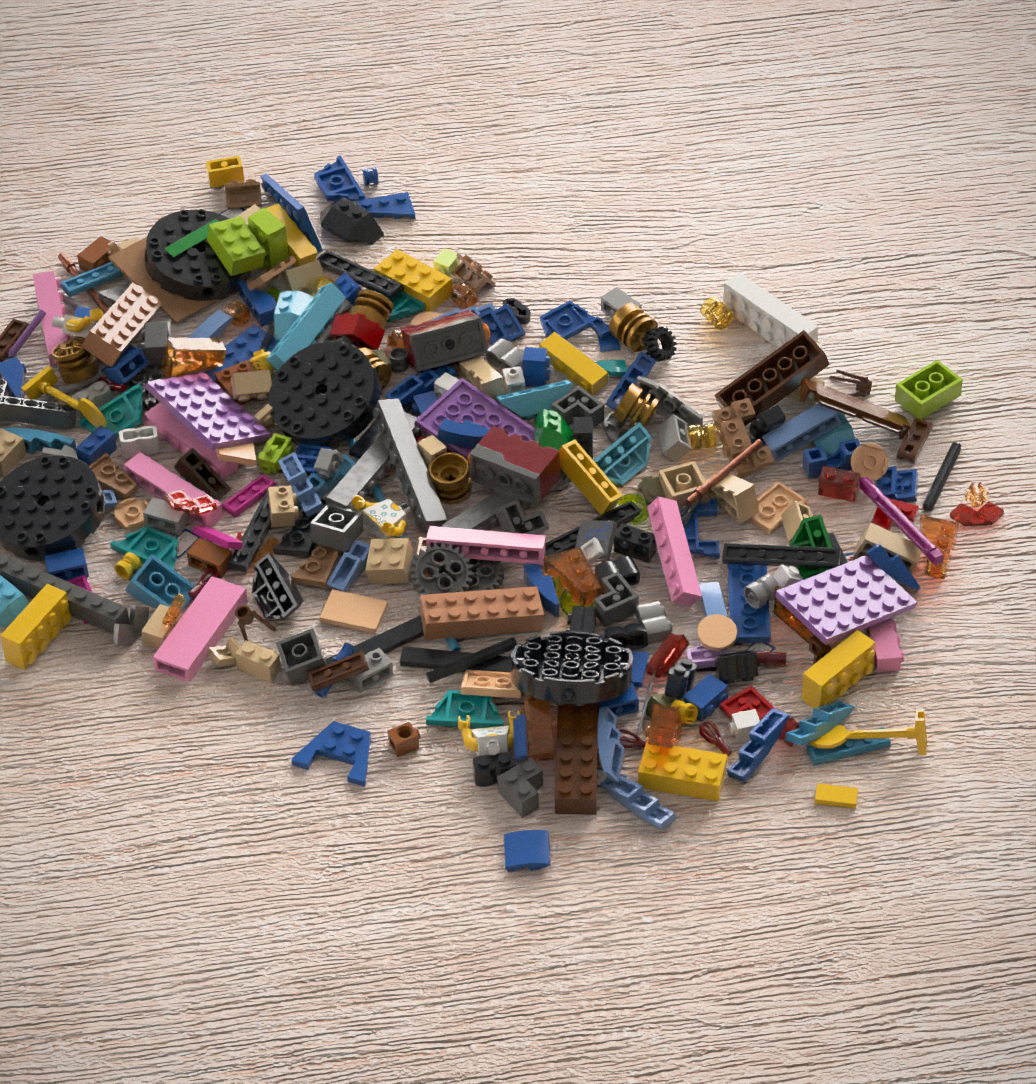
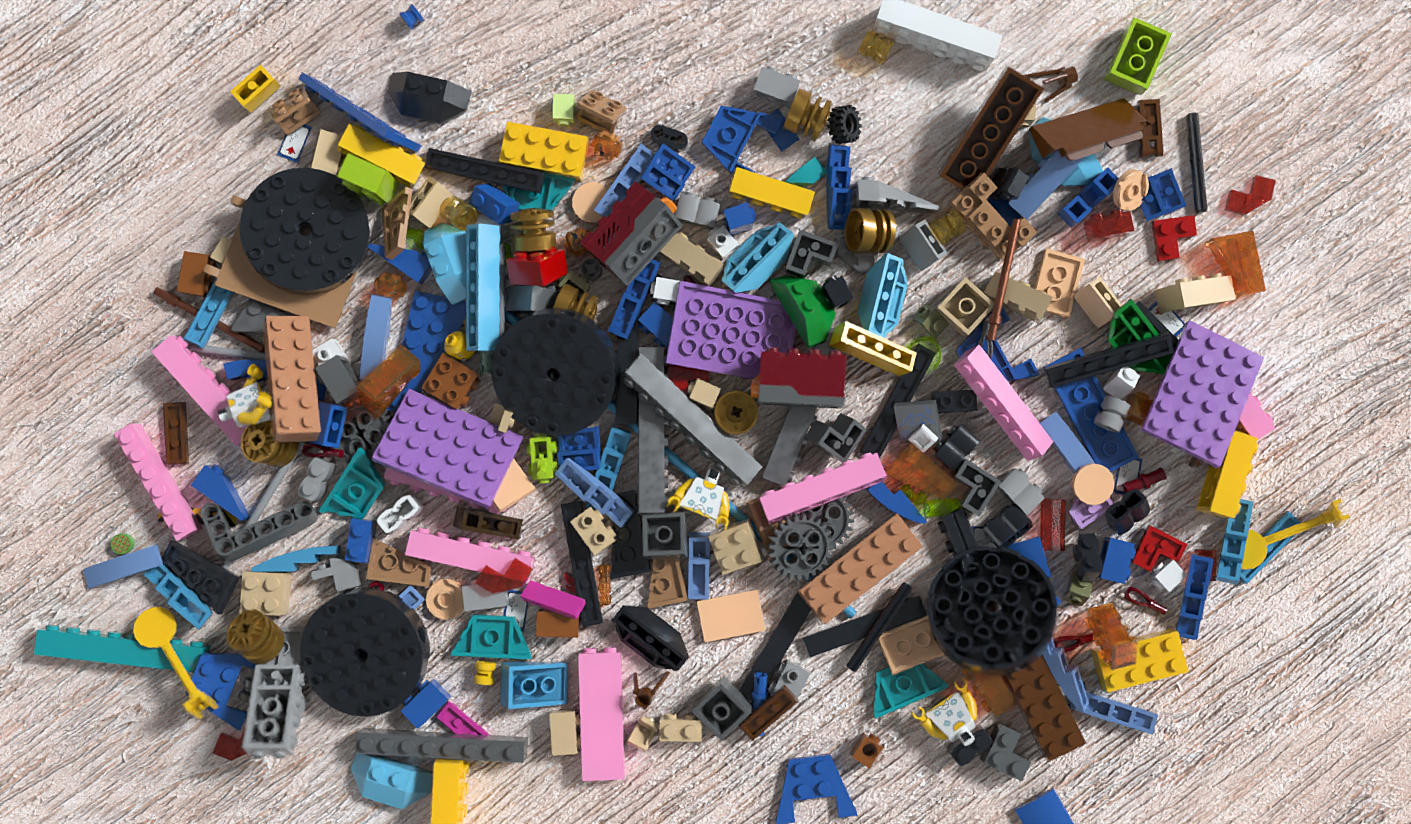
camera: 30 degrees left, 40 degrees up
(19, 343) = (194, 425): medium lavender bar -> none
(43, 383) = (253, 487): yellow piece -> none
(129, 633) = (536, 736): flat silver tile -> none
(174, 610) = (571, 720): clear orange axle -> none
(189, 240) = (293, 222): green sticker -> none
(199, 586) = (571, 664): dark red piece -> none
(235, 245) = (343, 213): lime brick -> none
(248, 496) = (545, 519): dark pink tile -> none
(251, 385) = (472, 392): tan brick -> none
(268, 339) = (443, 308): black piece -> none
(327, 463) = (608, 457): light grey brick -> none
(338, 182) = (382, 41): blue wing -> none
(389, 205) = (454, 48): blue wing -> none
(462, 435) = (726, 356): blue slope -> none
(520, 738) = (988, 716): blue slope -> none
(645, 704) = (1062, 591): sticker -> none
(687, 711) = (1105, 590): yellow wheel -> none
(836, 795) = (1284, 612): yellow tile -> none
(892, 566) = (1217, 319): blue slope -> none
(900, 520) = (1200, 257): magenta piece -> none
(976, 494) = (1245, 175): clear orange gear -> none

